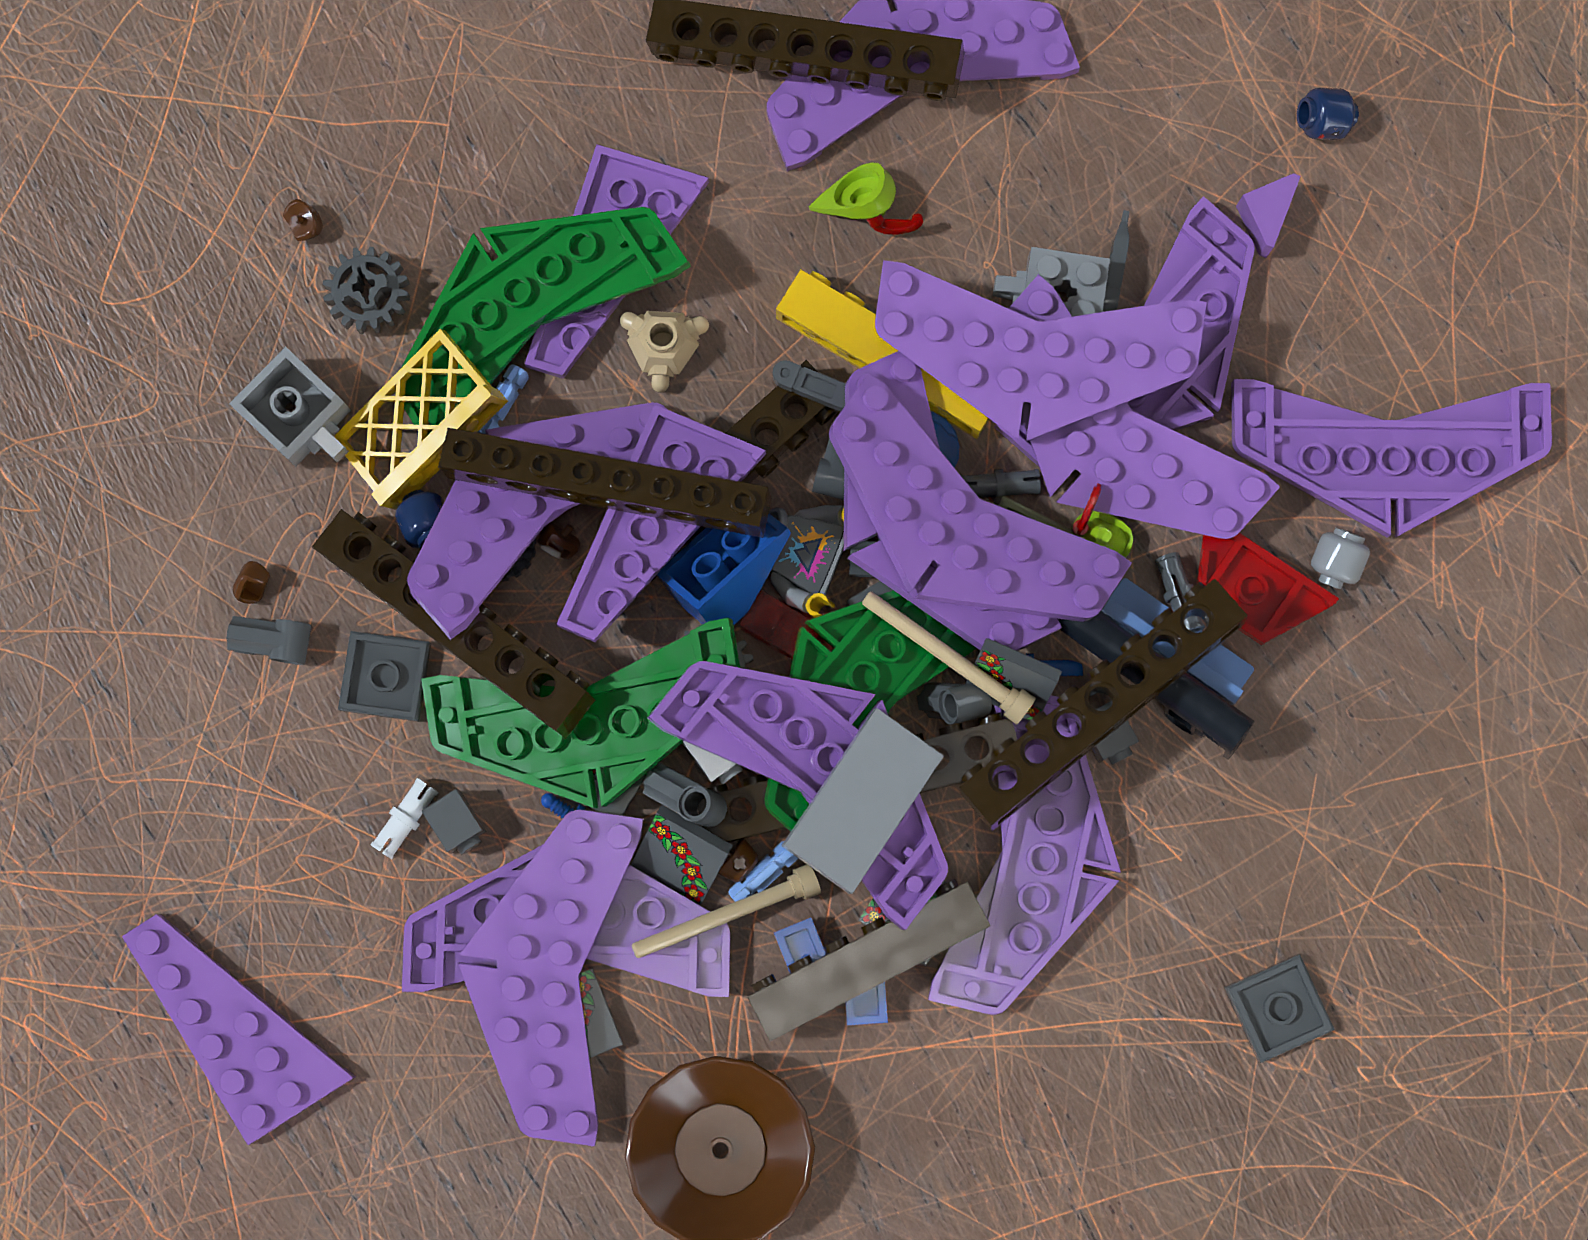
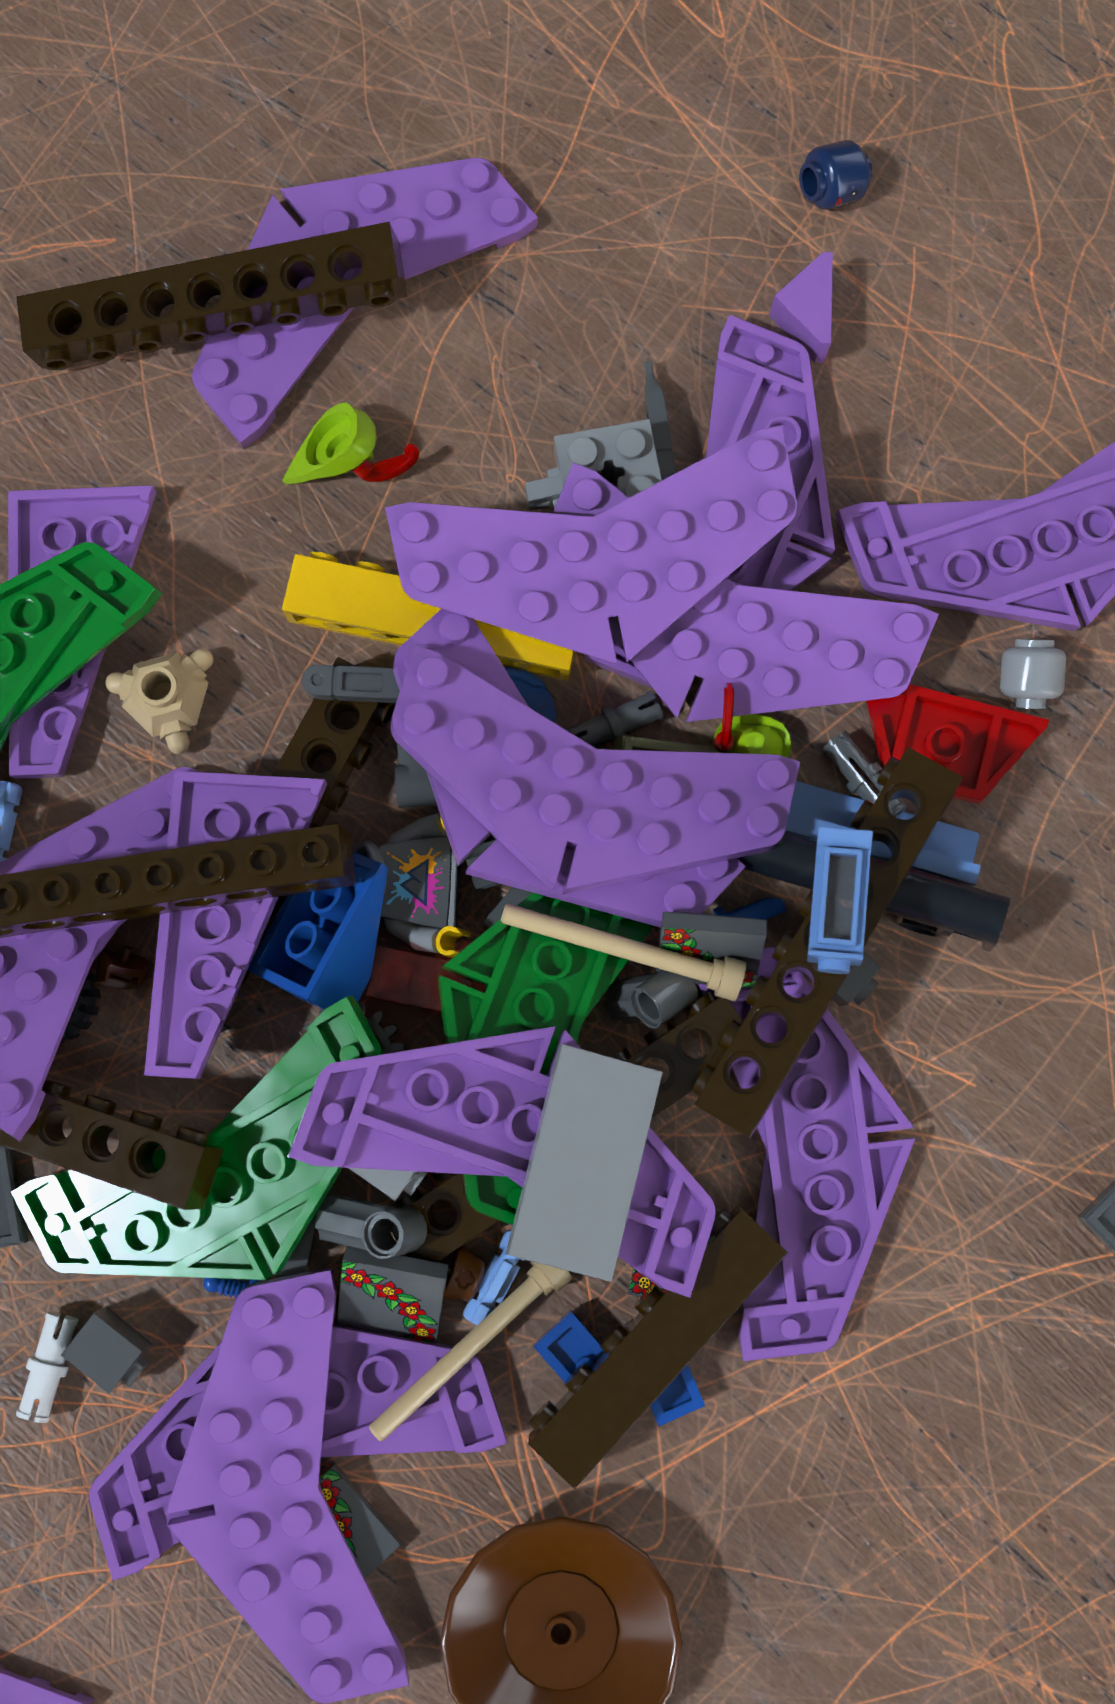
camera: 20 degrees left, 0 degrees up
(1120, 672) = (839, 899): none -> medium blue window

